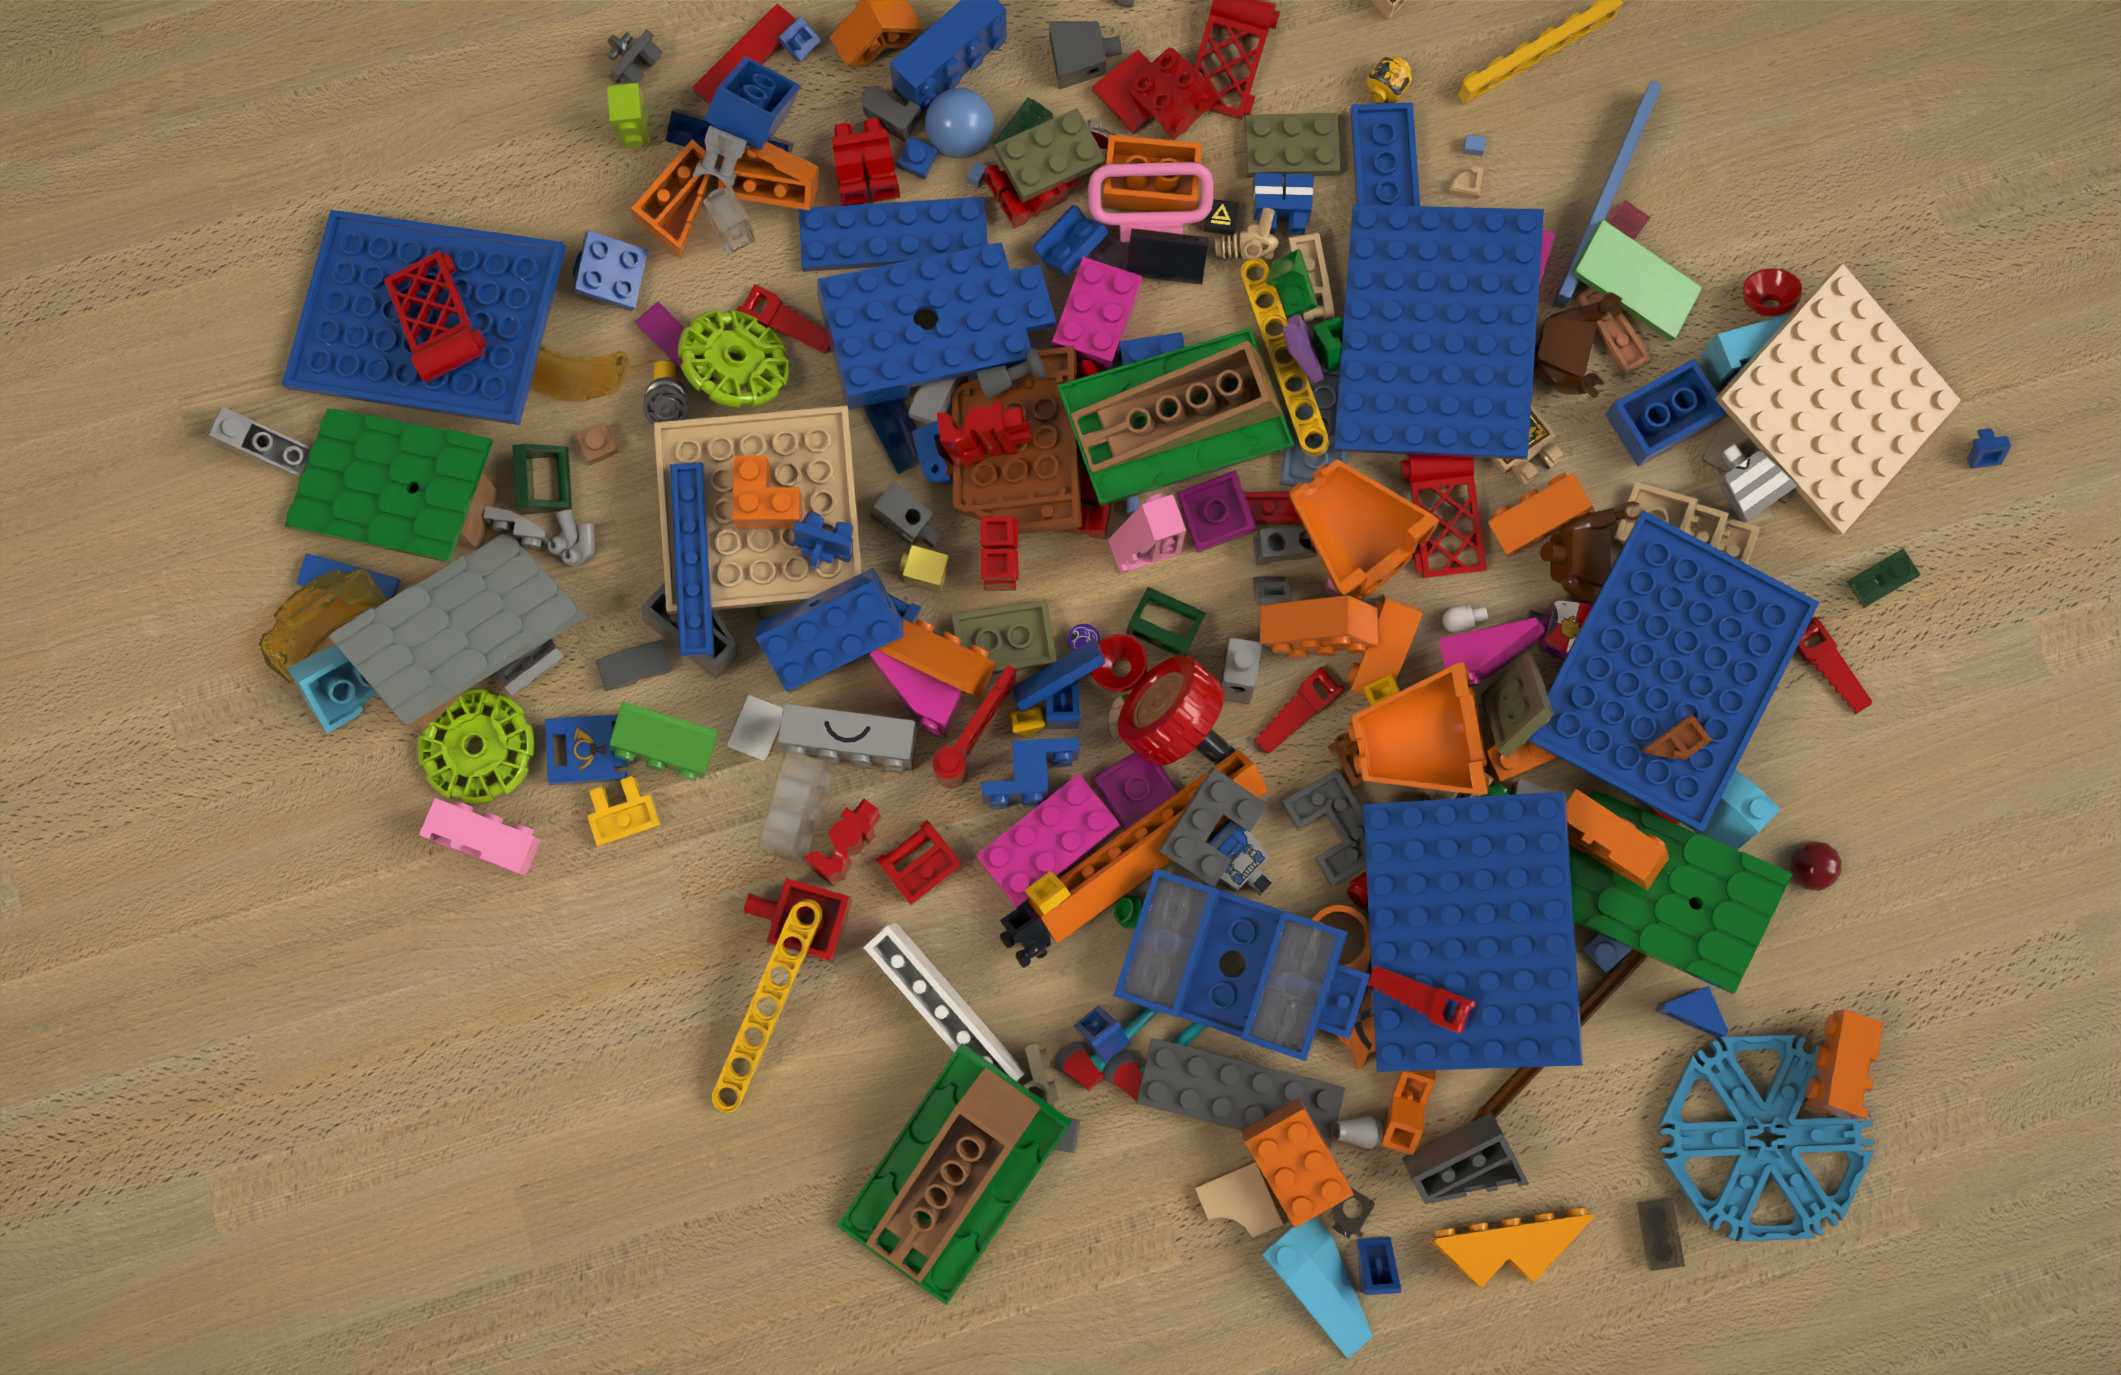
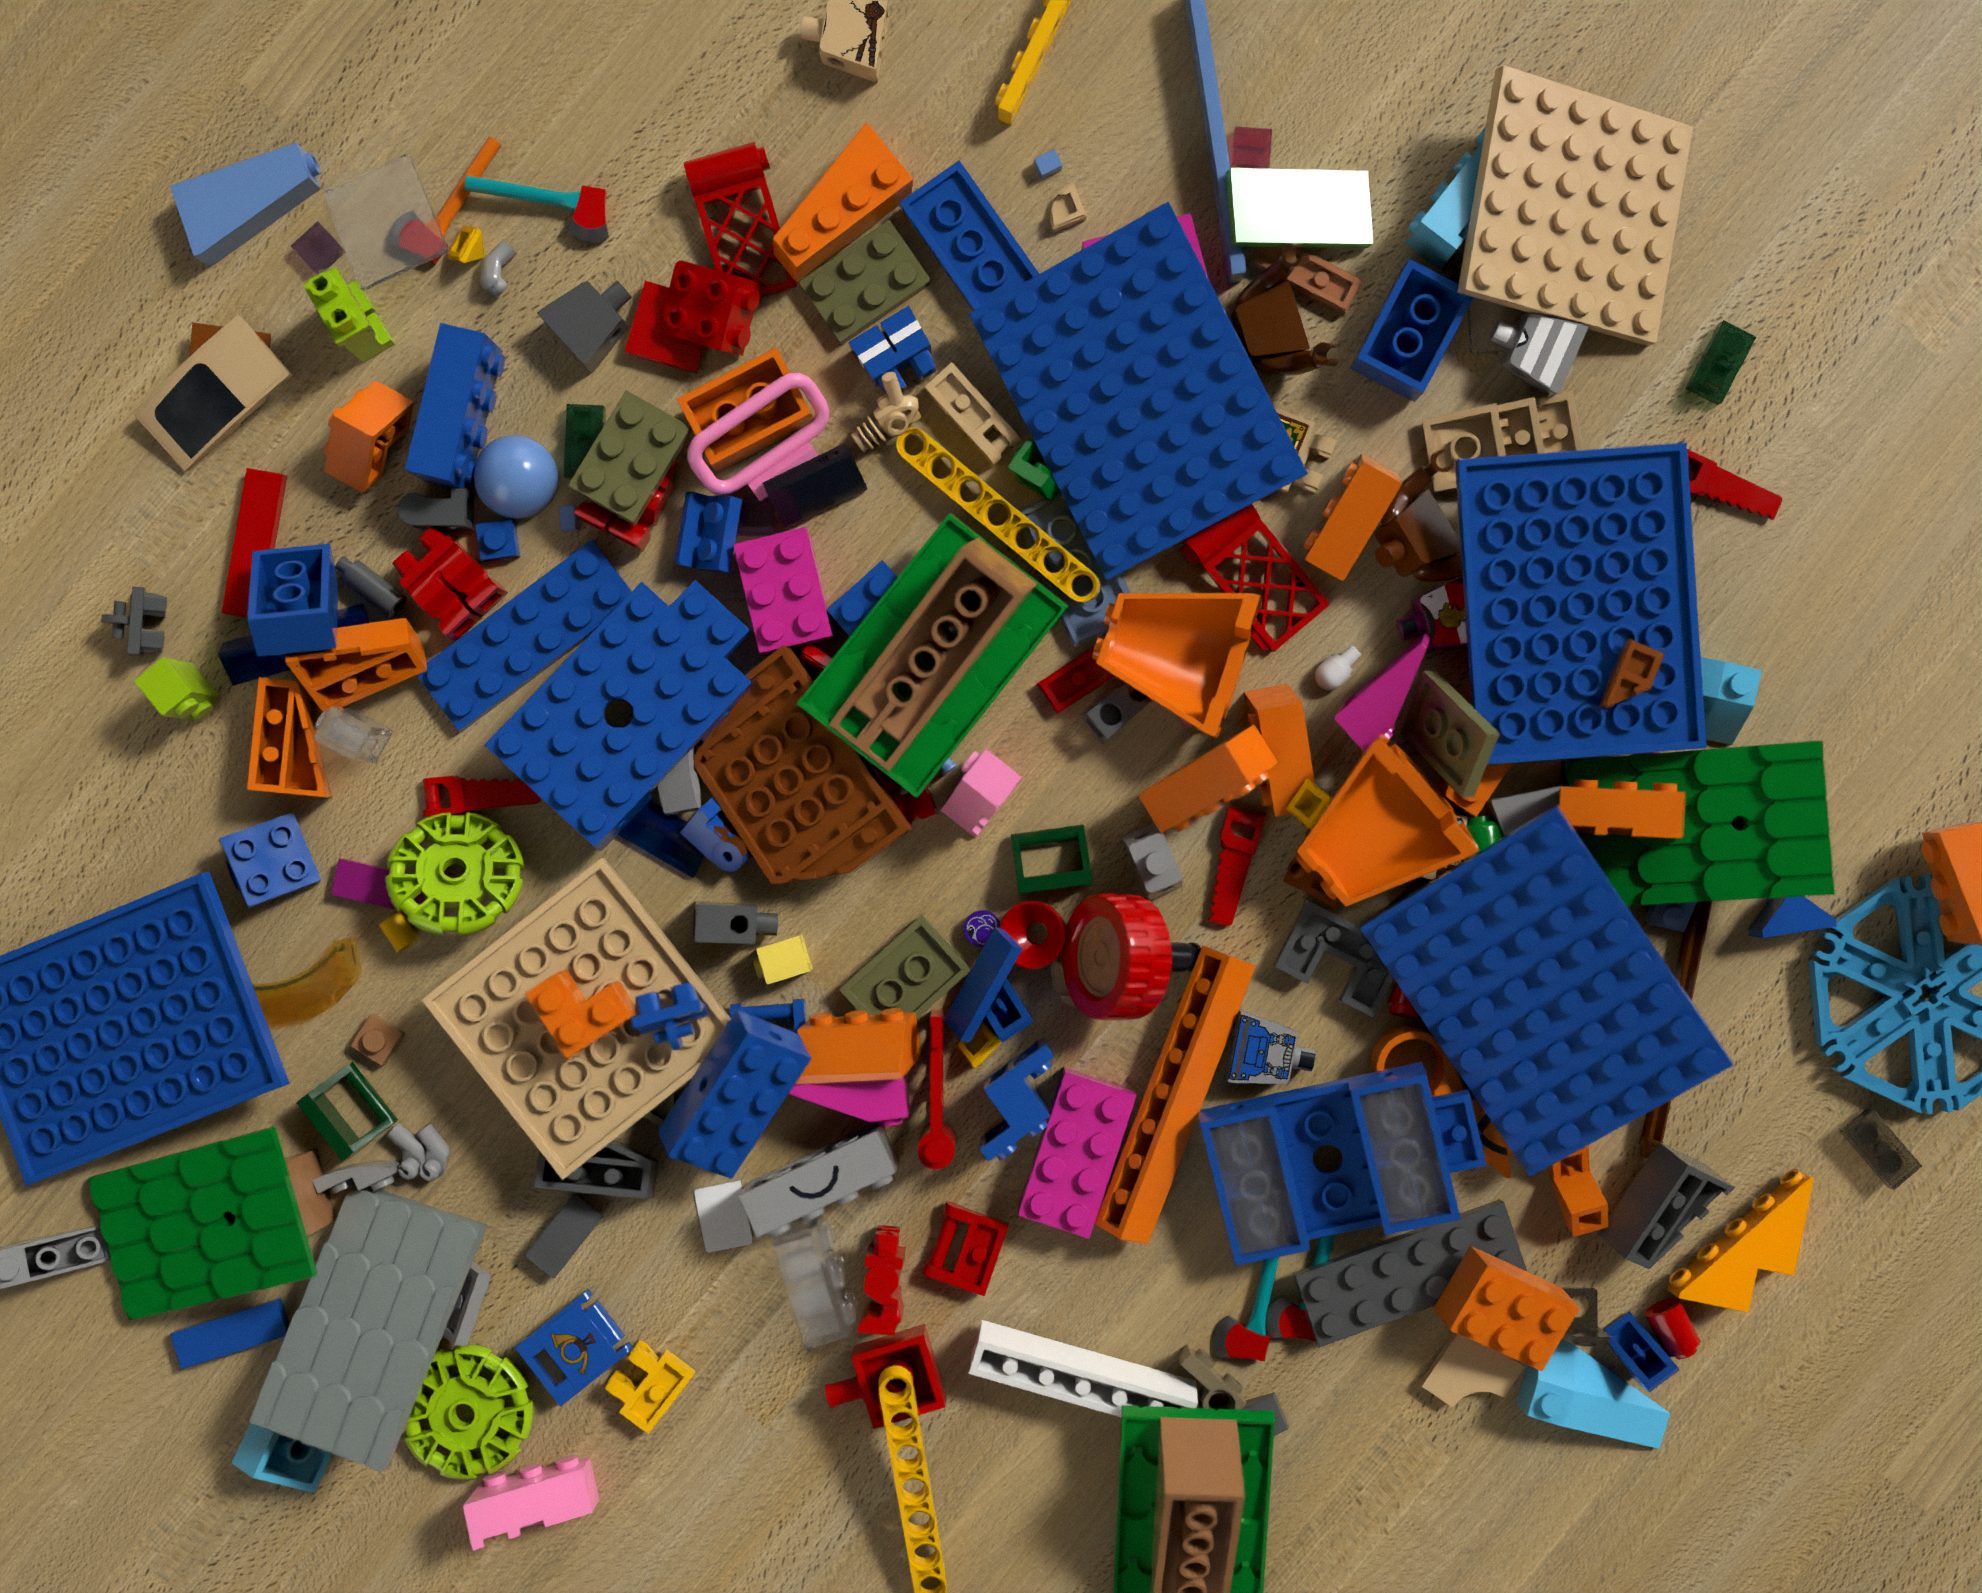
camera: 25 degrees left, 10 degrees up
(315, 614) = (219, 1392): clear yellow windscreen -> none
(446, 347) = (160, 1061): red piece -> none
(662, 741) = (643, 1300): bright green slope -> none
(665, 400) = (416, 959): flat silver wheel -> none
(692, 560) = (552, 1114): blue tile -> none
(727, 145) = (300, 668): light grey piece -> none
(799, 39) = (294, 492): blue tile -> none
(808, 133) = (371, 586): none -> dark grey cylinder
(983, 432) = (752, 797): red hips -> none
(999, 378) = (732, 727): dark grey piece -> none
(999, 554) = (847, 901): red hips -> none
(1027, 928) = (1109, 1254): black piece -> none
(1047, 892) = (1111, 1211): yellow plate -> none
(1099, 133) = (665, 400): tile -> none
(1102, 1033) = (1243, 1301): blue slope -> none
(1128, 911) = (1195, 1167): green plate -> none
(1134, 788) = (1126, 1047): magenta tile -> none
(1187, 837) = (1211, 1070): dark grey plate -> none
(1216, 511) = (1030, 716): magenta tile -> none
(1222, 217) = (843, 406): black tile -> none
(1271, 590) = (1137, 767): dark grey slope -> none
(1293, 284) = (957, 431): green slope -> none
(1302, 348) = (1011, 497): medium lavender tile -> none
(1310, 81) = (844, 203): none -> orange wedge
(1360, 1131) = (1544, 1236): light grey cone -> none
(1389, 79) = (920, 149): yellow head -> none
(1416, 1269) = (1673, 1328): none -> red brick
(1422, 997) = (1537, 1086): red piece -> none
(1772, 285) = (1439, 122): red piece -> none
(1816, 865) = (1821, 697): dark red hair -> none
(1988, 449) = (1748, 162): blue tile -> none

